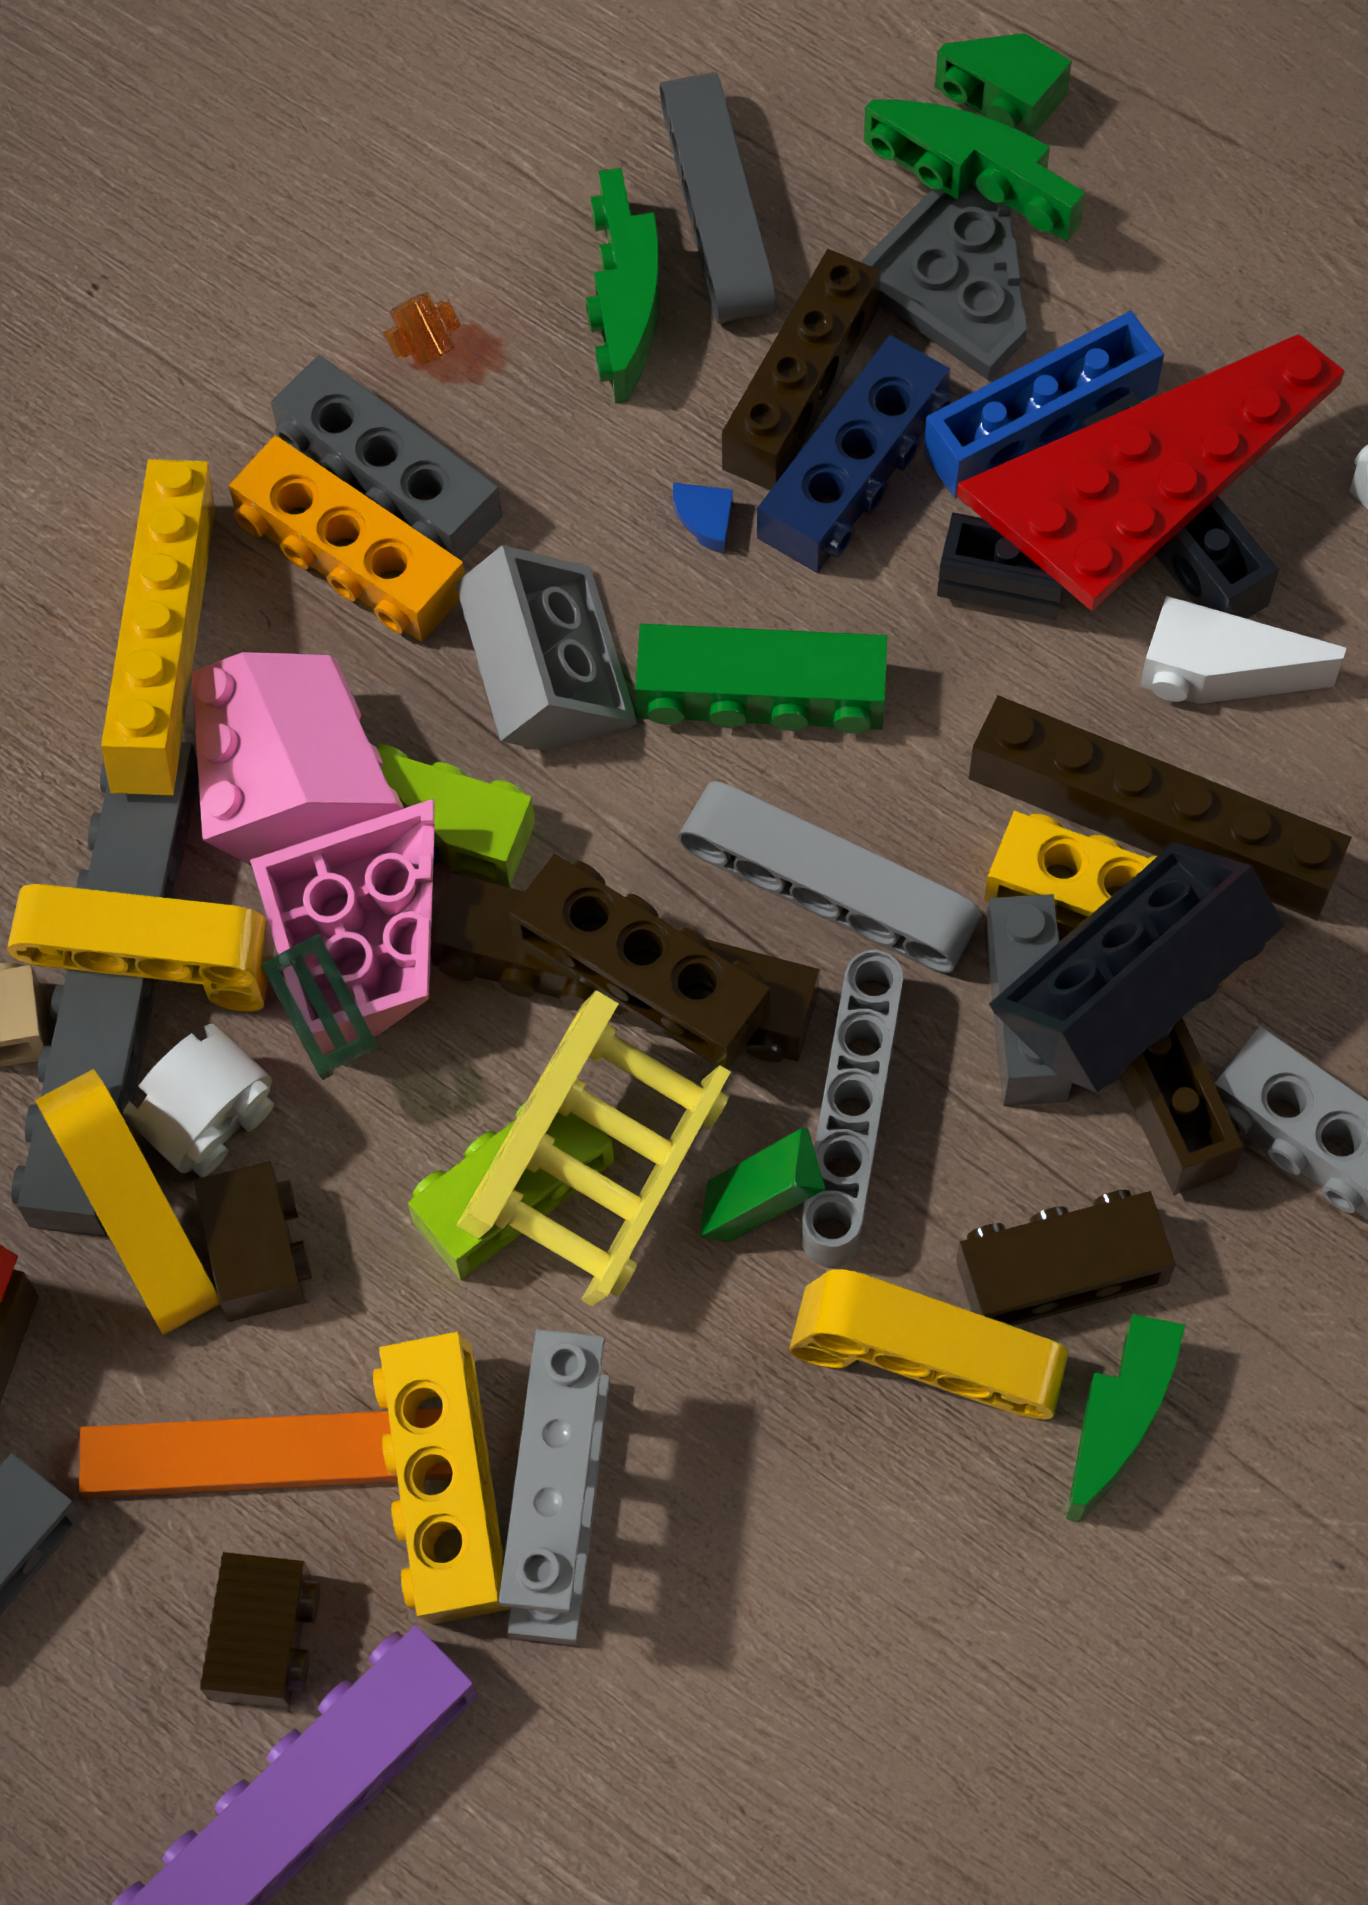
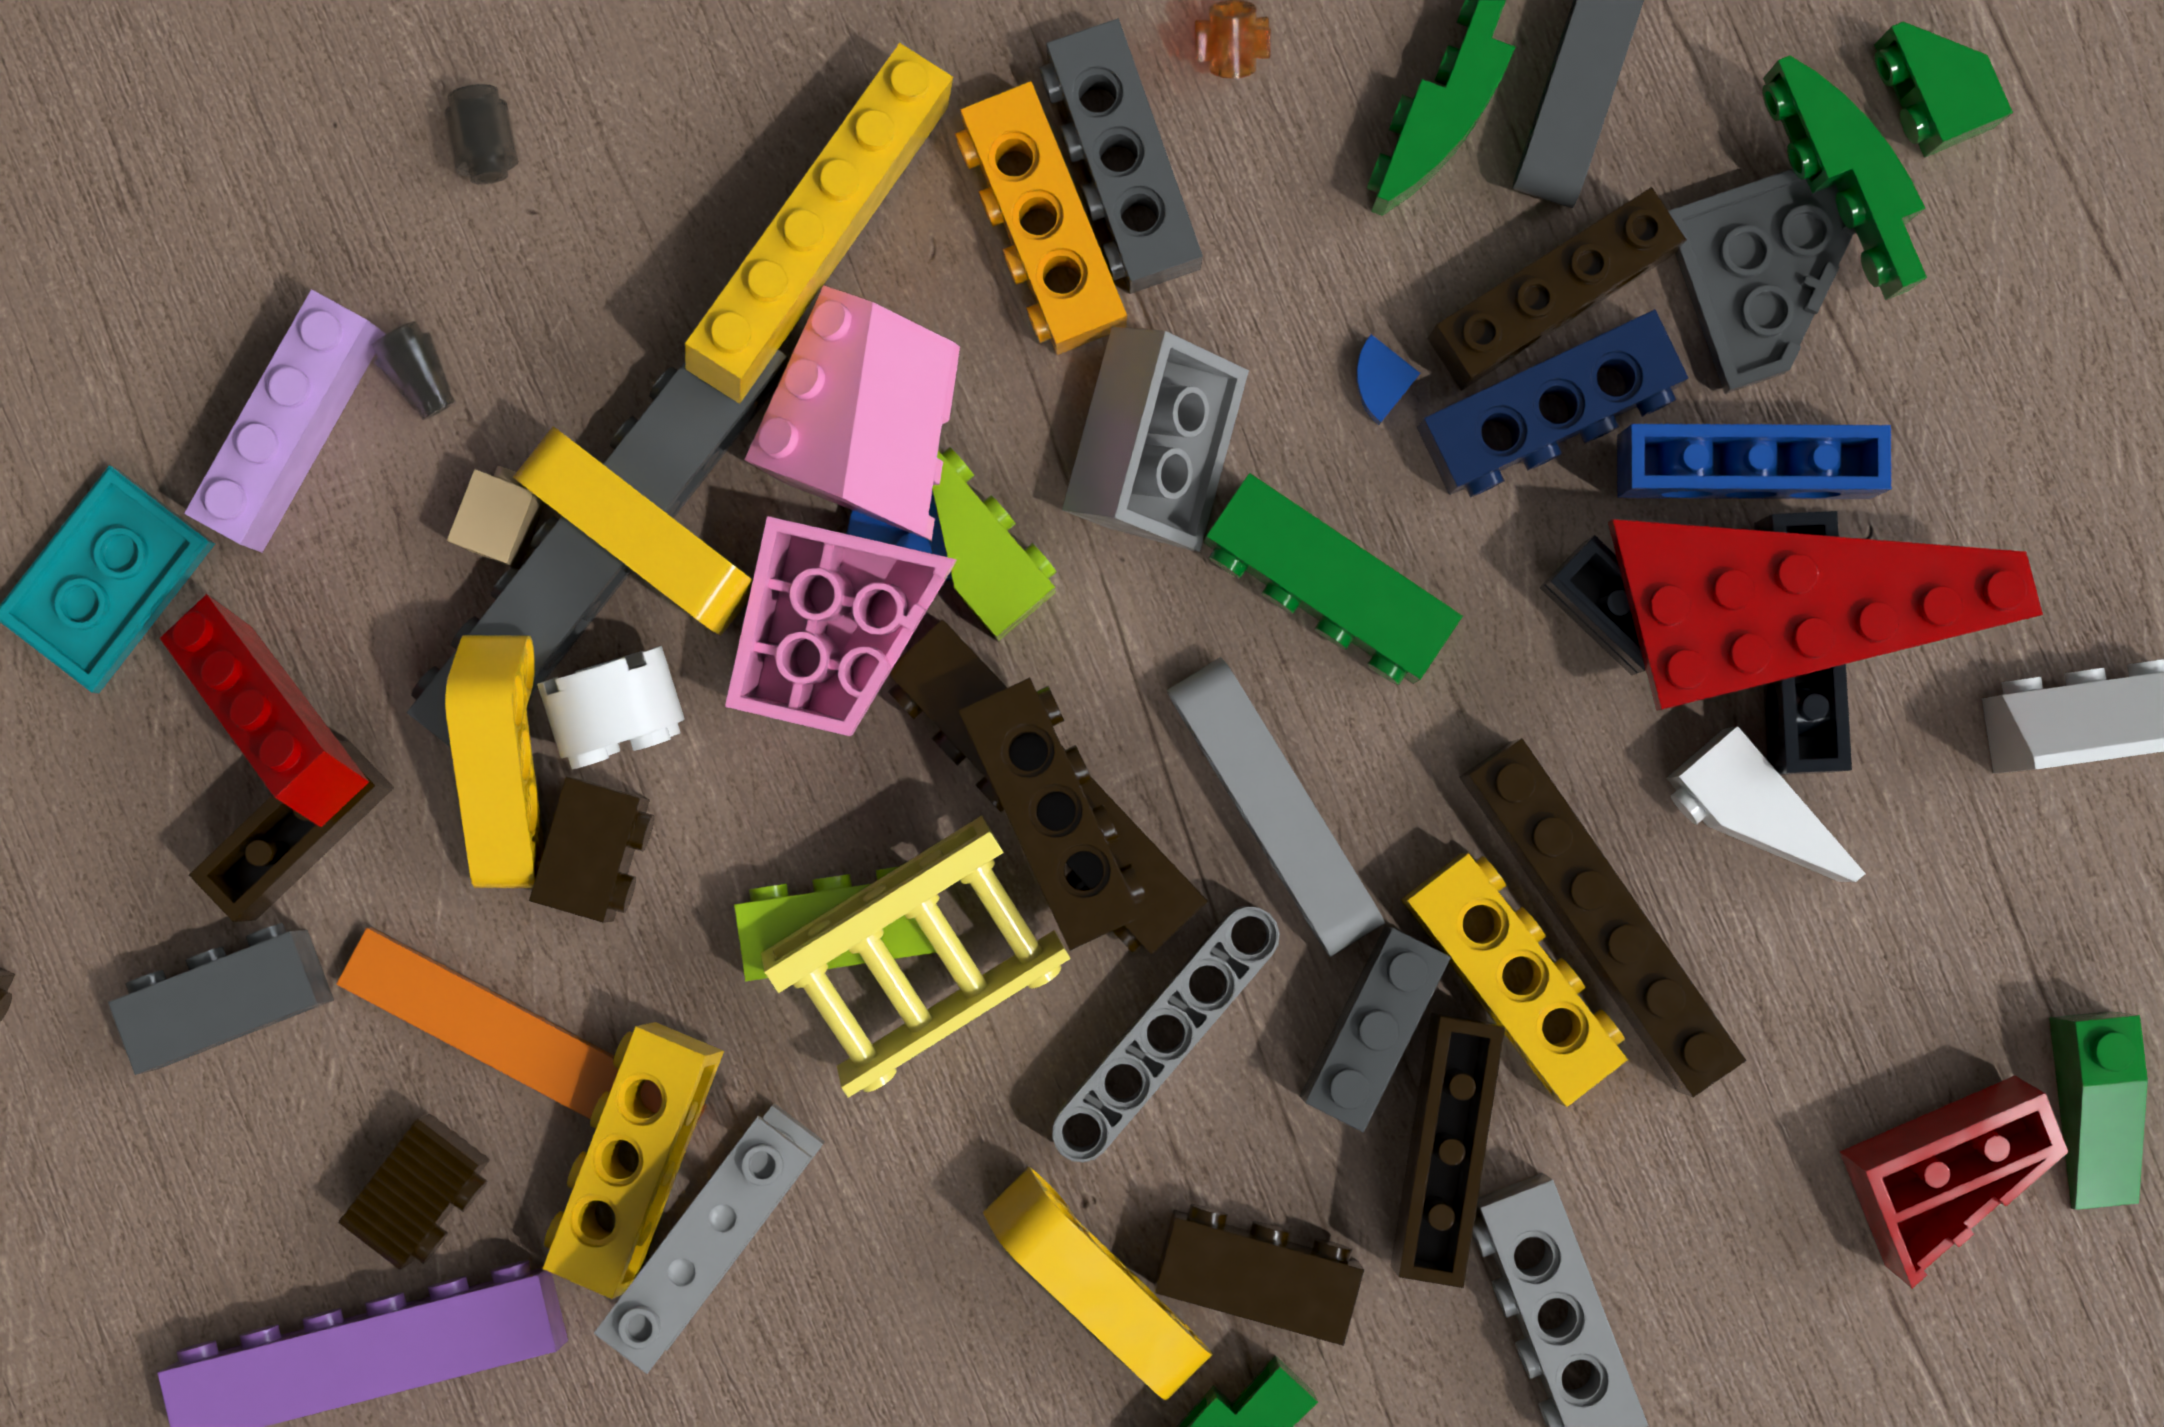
camera: 30 degrees right, 20 degrees up
(345, 1052) = (776, 693): clear green tile -> none
(761, 1187) = (1040, 1064): green slope -> none
(1139, 964) = (1475, 1081): black slope -> none

